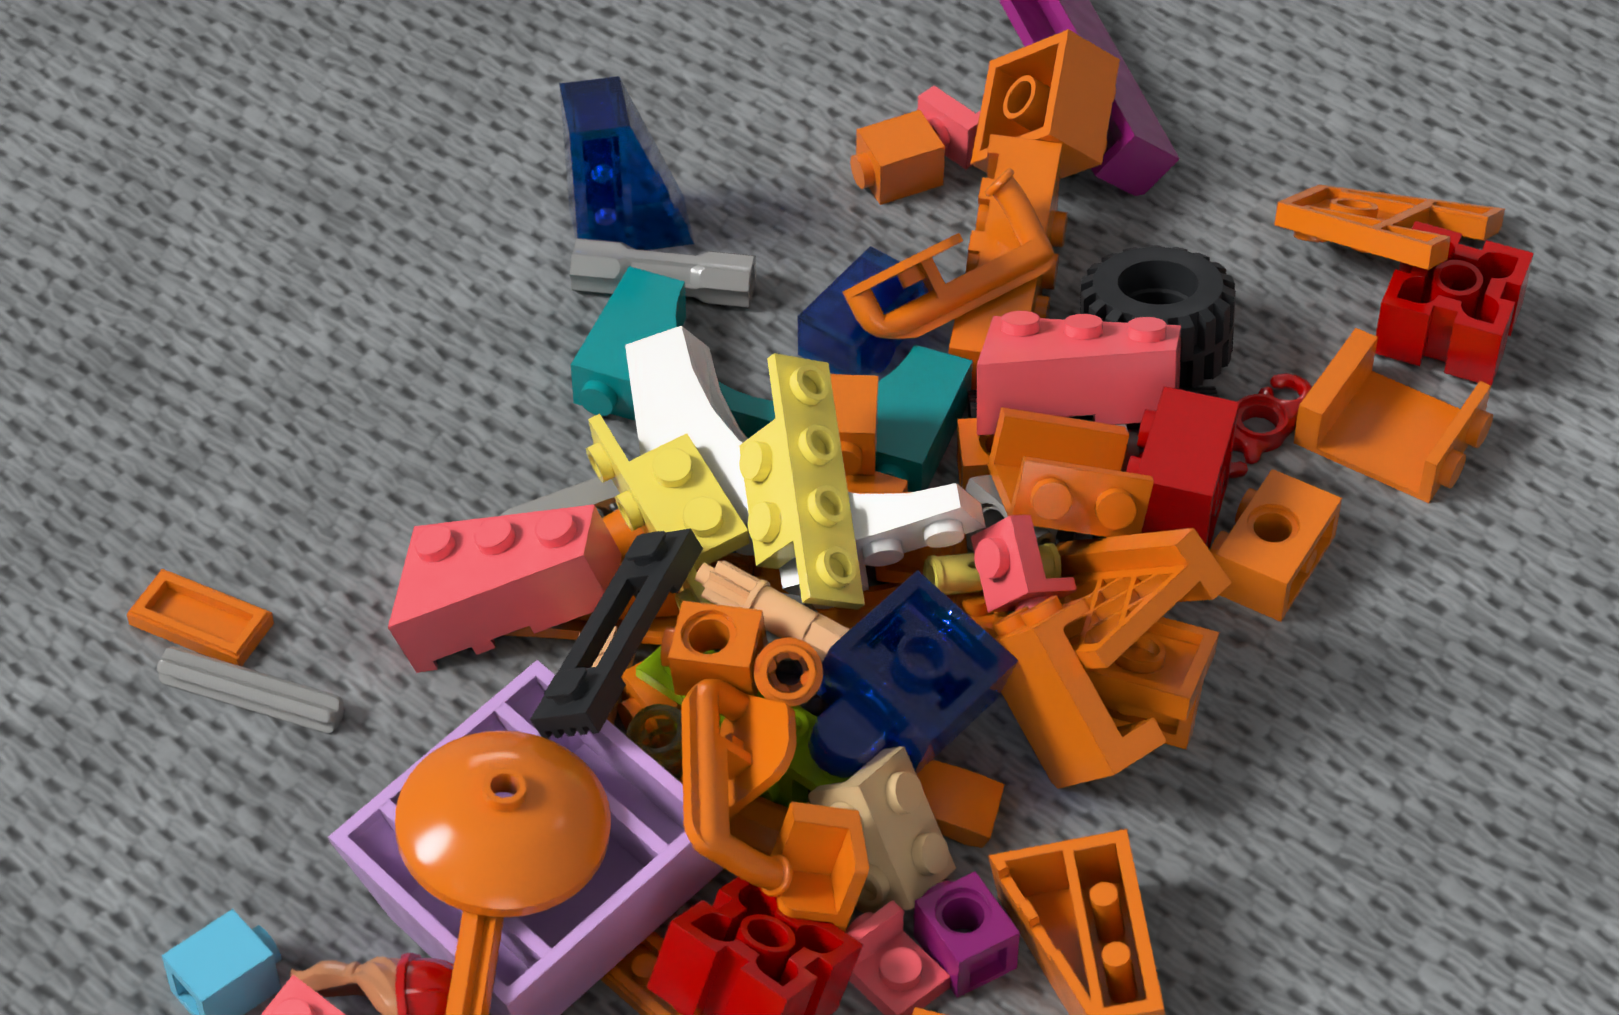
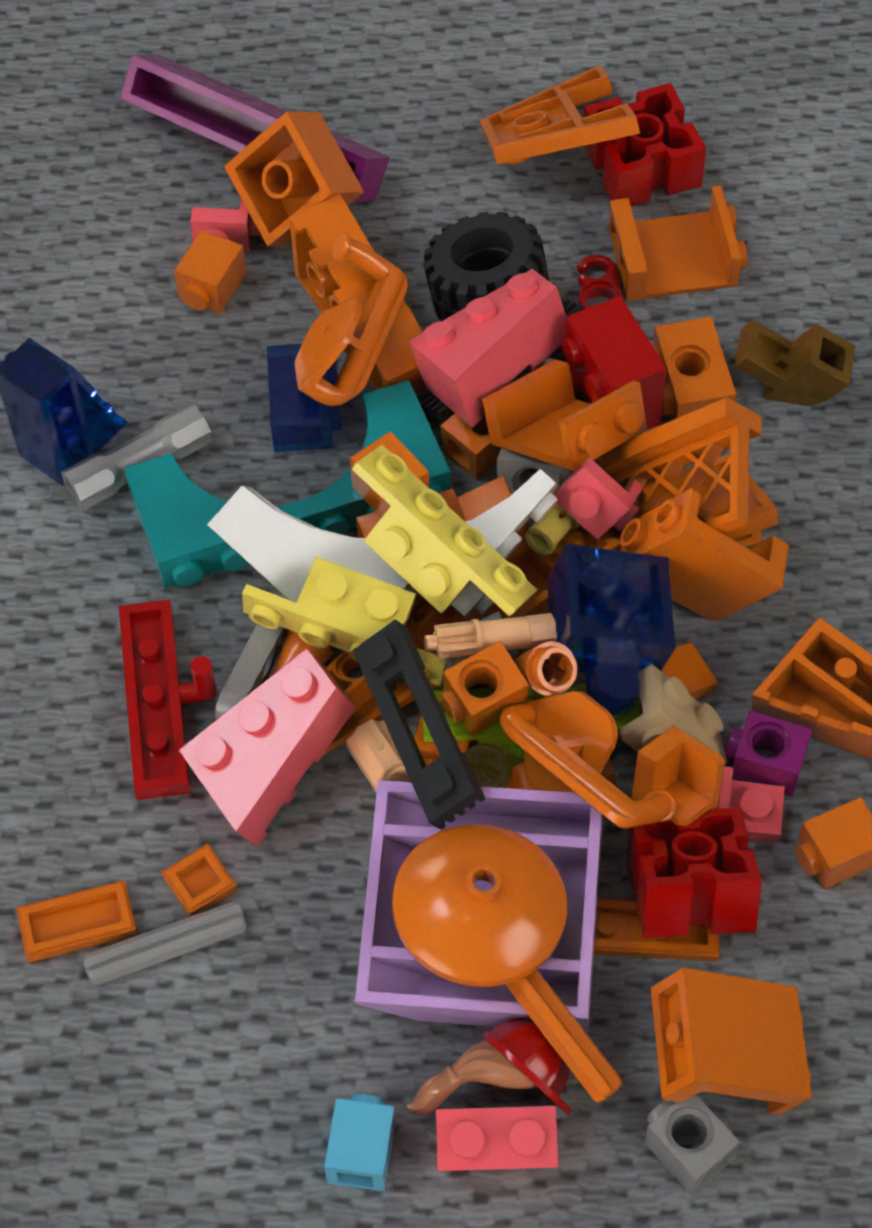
camera: 40 degrees left, 10 degrees up
(335, 661) = (199, 881): none -> orange tile
(466, 475) = (157, 698): none -> red plate
(1385, 608) = (797, 370): none -> pearl gold brick

